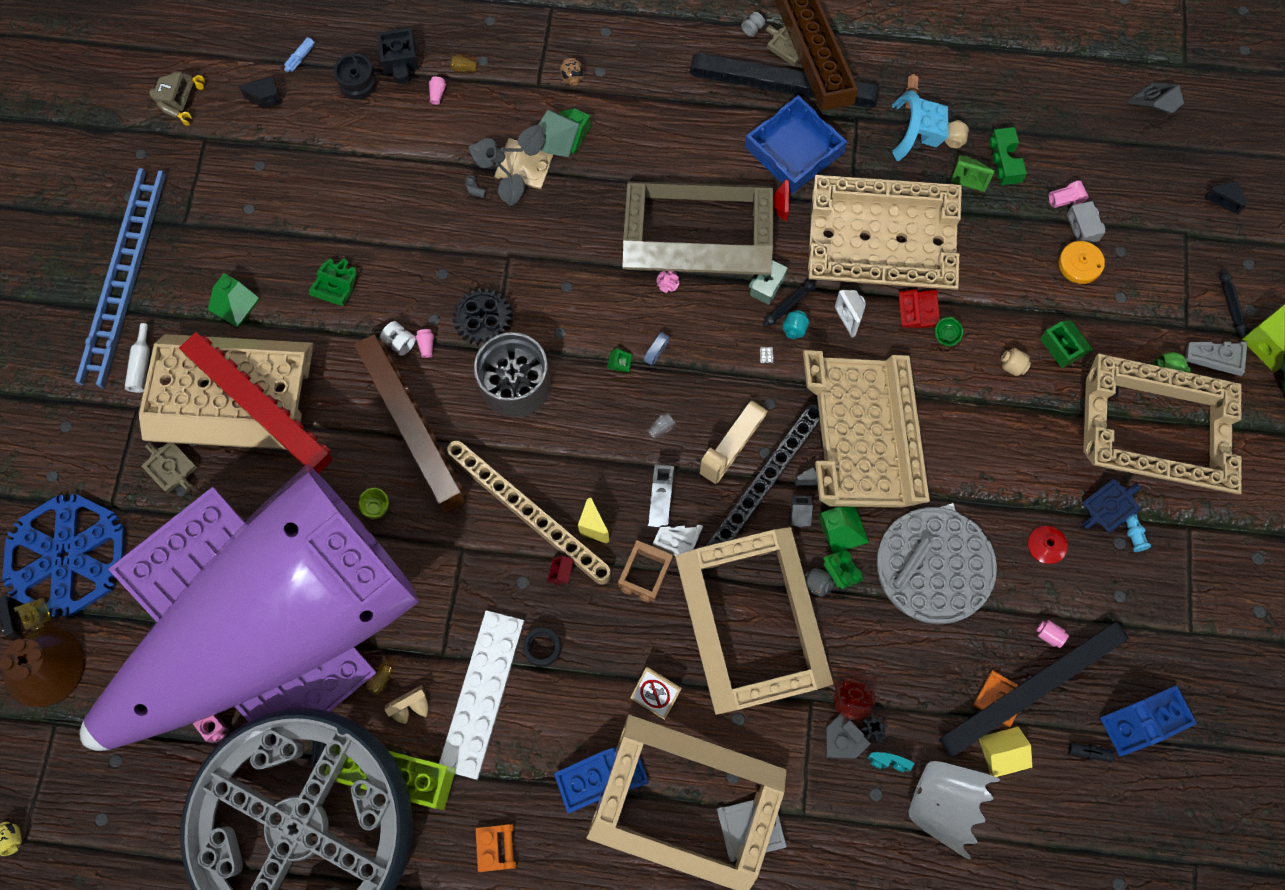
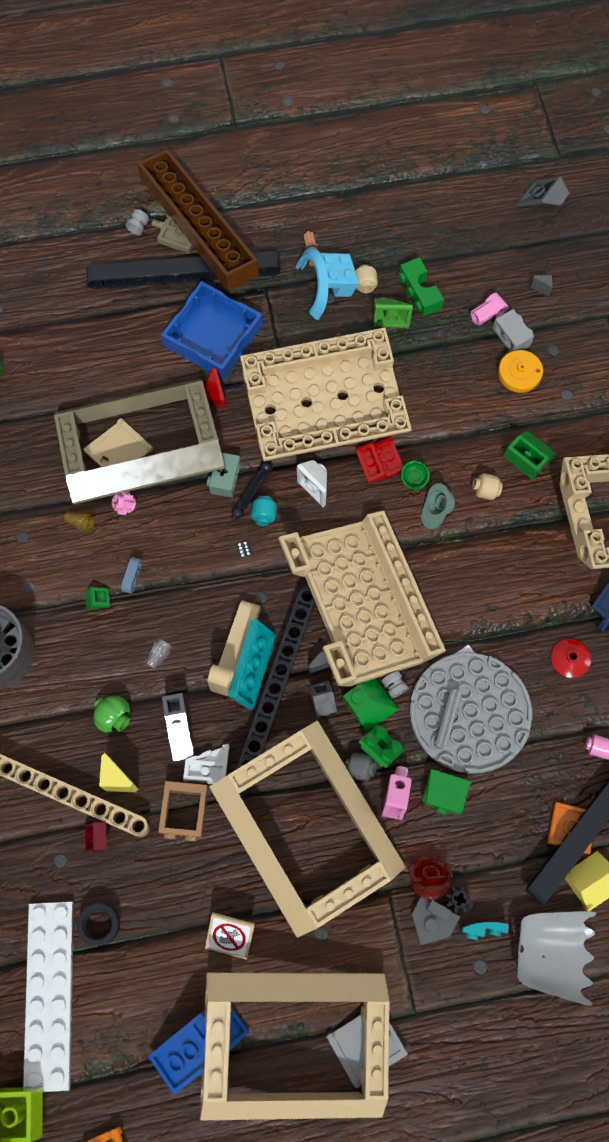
camera: 20 degrees left, 0 degrees up
(604, 467) = (111, 714): none -> bright green plant
(623, 287) = (80, 521): none -> clear yellow cone
(677, 227) = (118, 445): none -> tan container
(745, 460) = (252, 664): none -> teal tile
(844, 617) = (397, 794): none -> bright pink torso
(872, 518) = (395, 684): none -> light grey wheel
(890, 629) = (445, 793): none -> green torso
(962, 365) = (437, 506): none -> sand green piece
(1129, 184) = (542, 284): none -> dark grey slope

